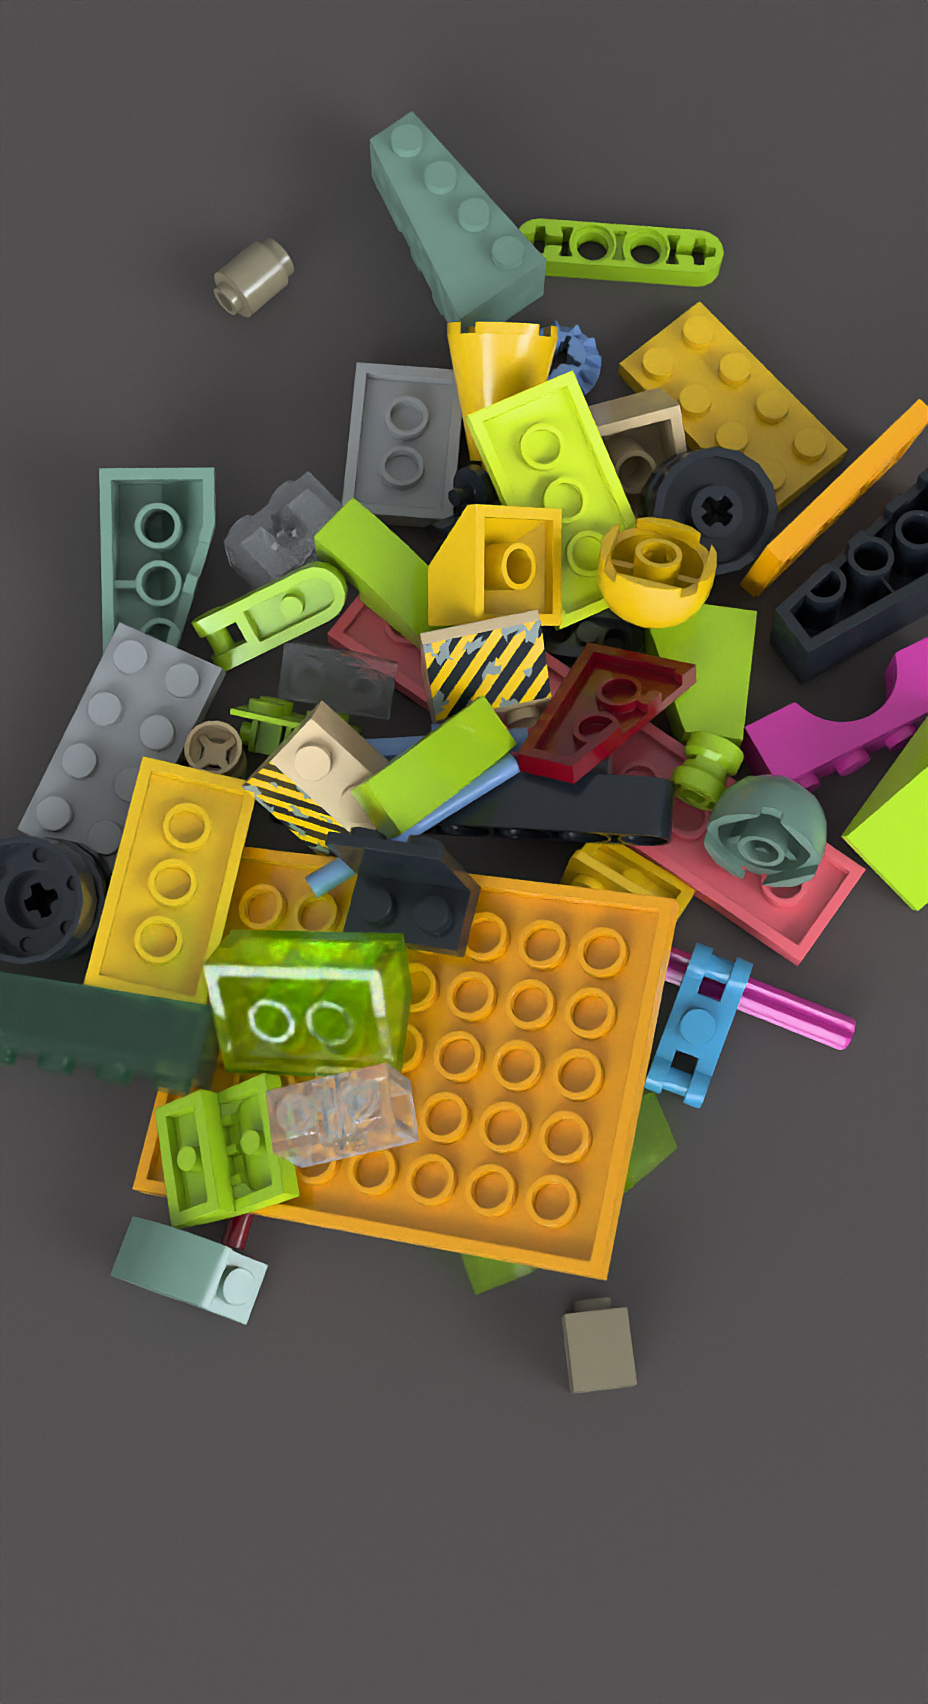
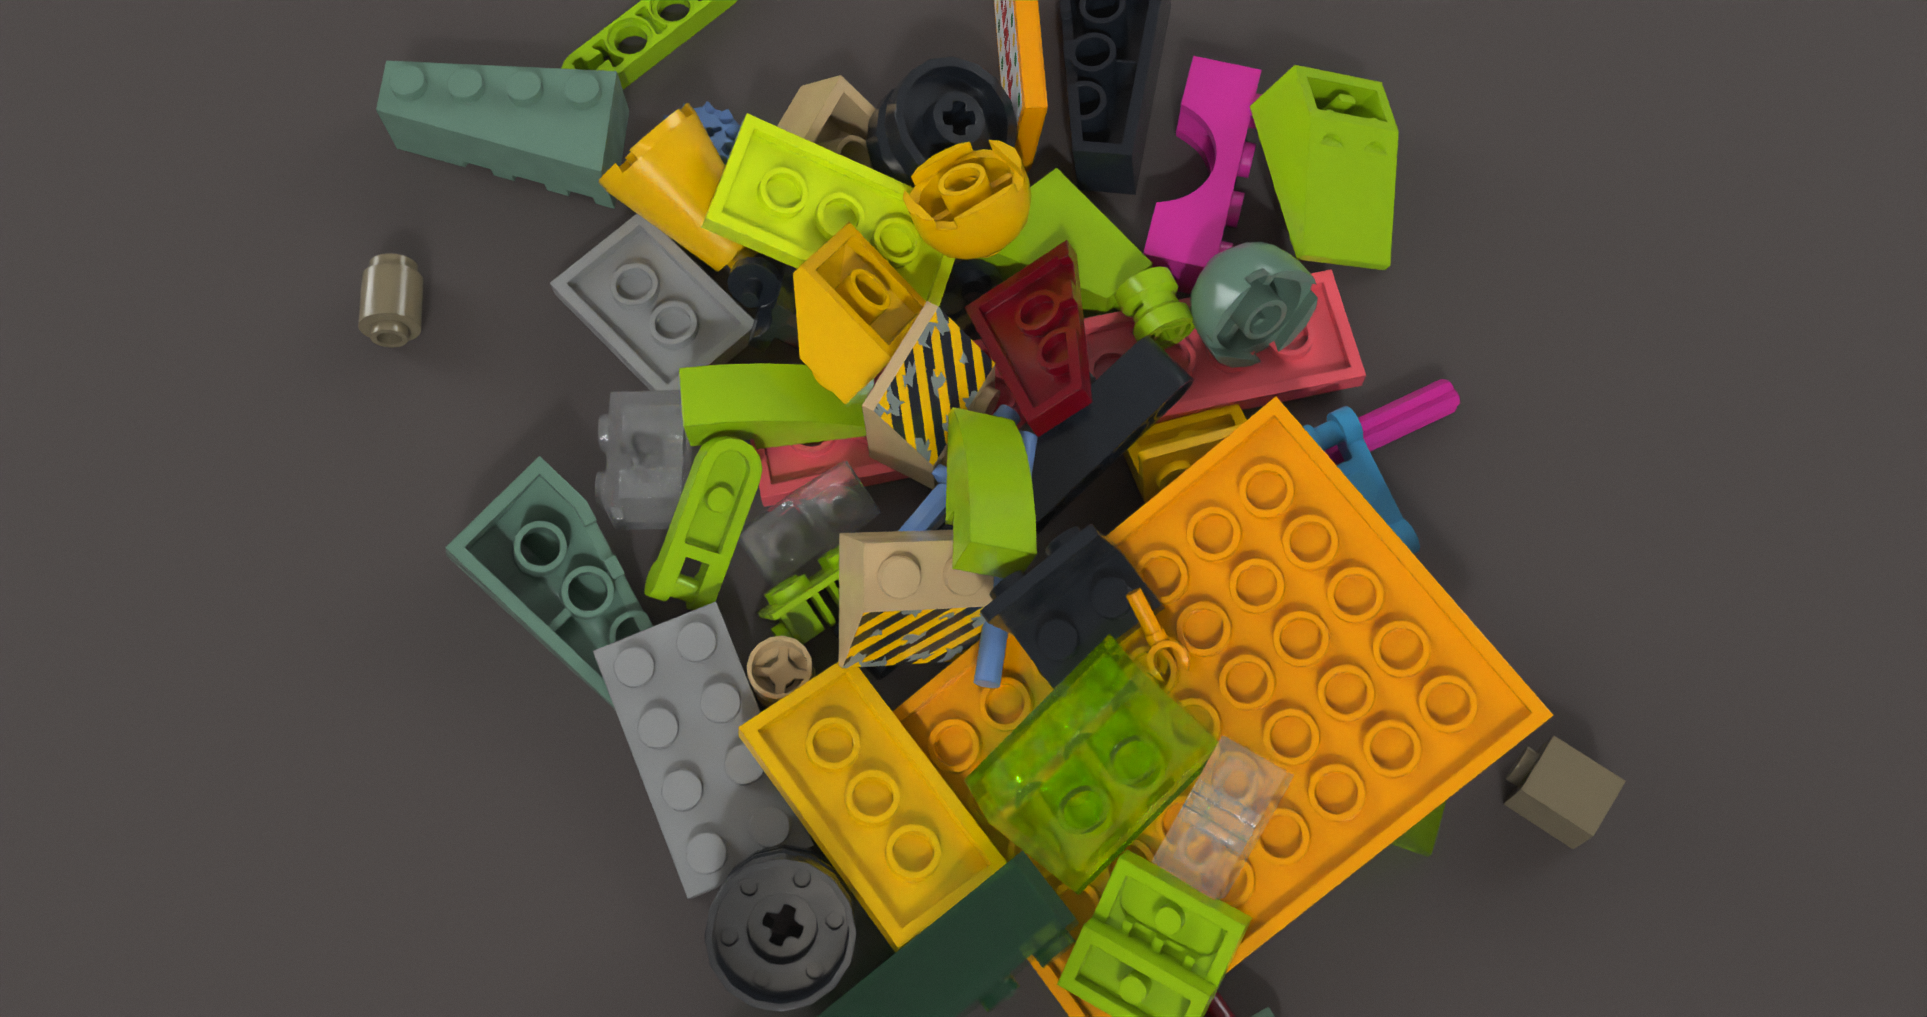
camera: 45 degrees left, 5 degrees down
(429, 970) = (1154, 634): none -> light orange hand
(734, 402) = (862, 44): yellow plate -> none

